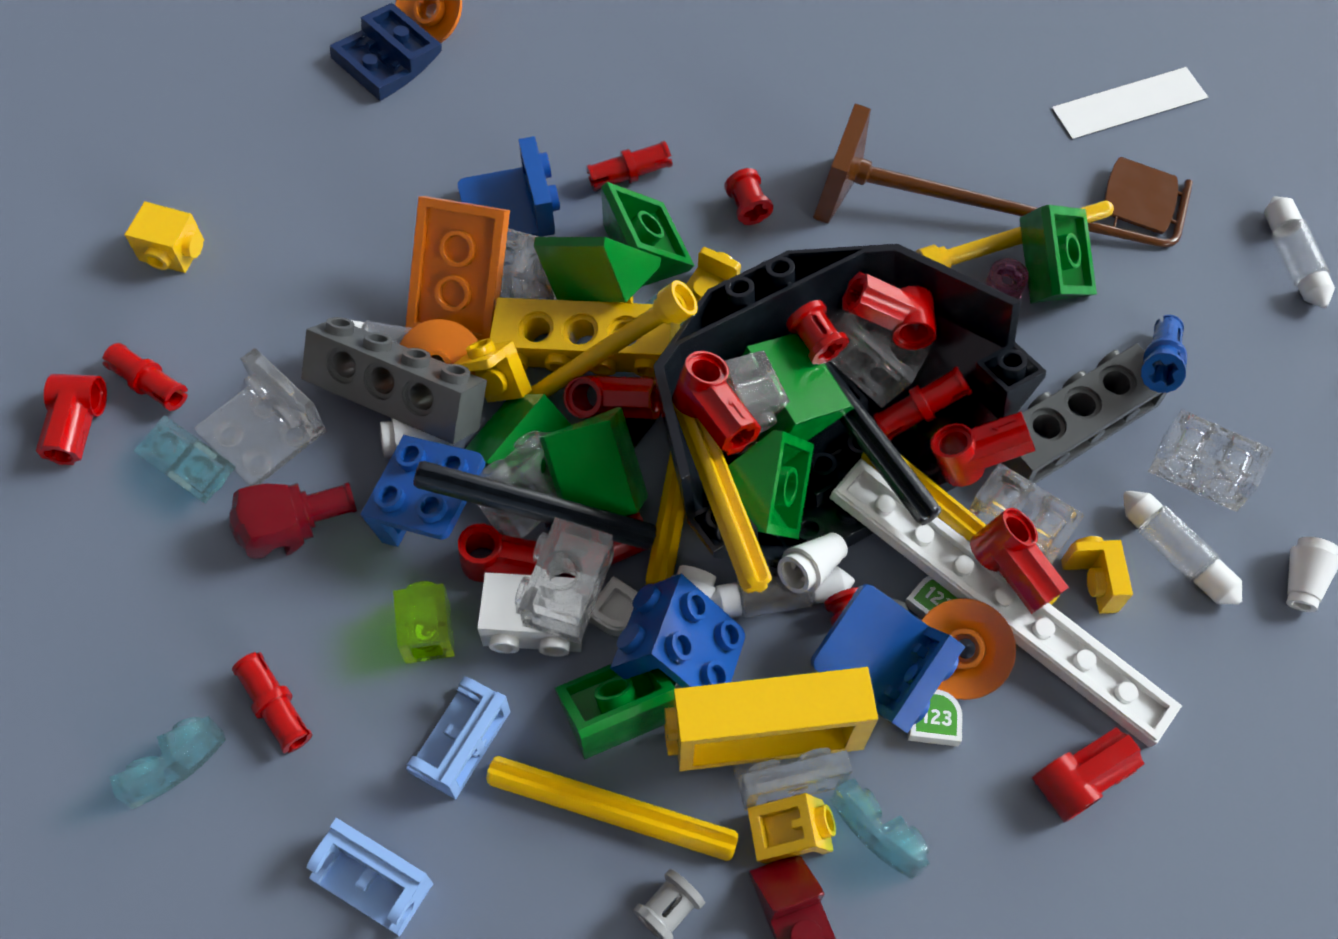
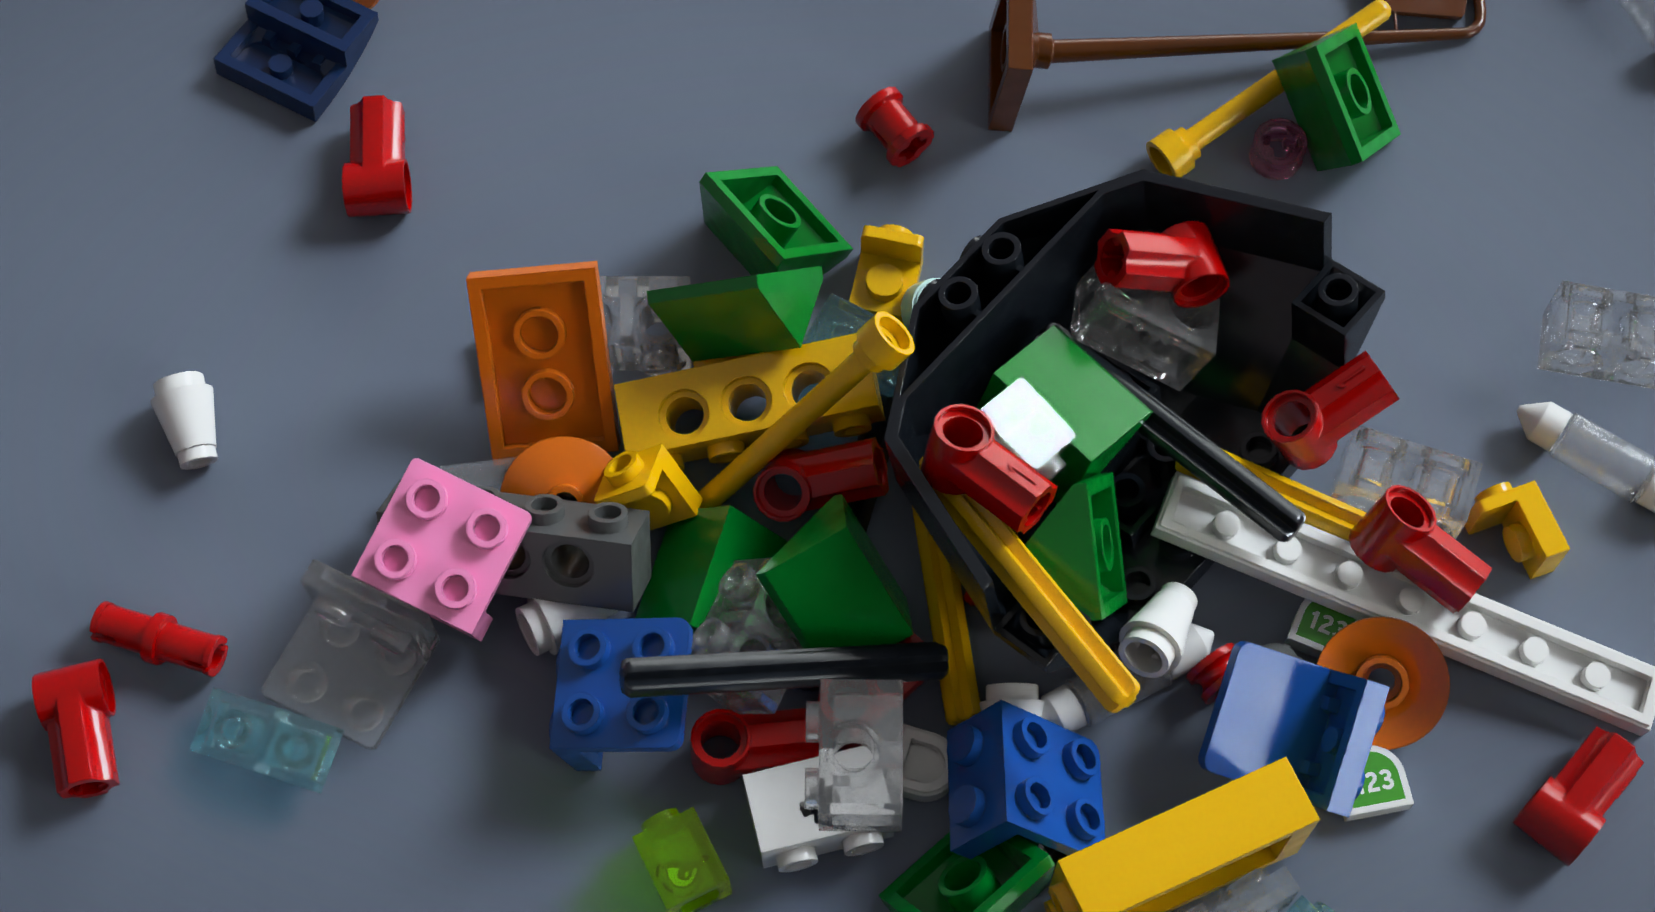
camera: 15 degrees left, 5 degrees up
(164, 237) = (101, 427): yellow brick -> none
(221, 247) = (187, 417): none -> white cone
(283, 515) = (438, 778): dark red piece -> none
(337, 362) = (443, 547): none -> bright pink bracket
(403, 136) = (378, 173): none -> red piece
(518, 190) = (571, 216): blue bracket -> none
(629, 165) = (713, 126): red pin -> none
(817, 332) = (1078, 325): red bush -> none
(923, 403) = (1233, 373): red pin -> none
(1100, 411) = (1493, 255): dark grey brick -> none
(1165, 356) = (1522, 212): blue pin -> none

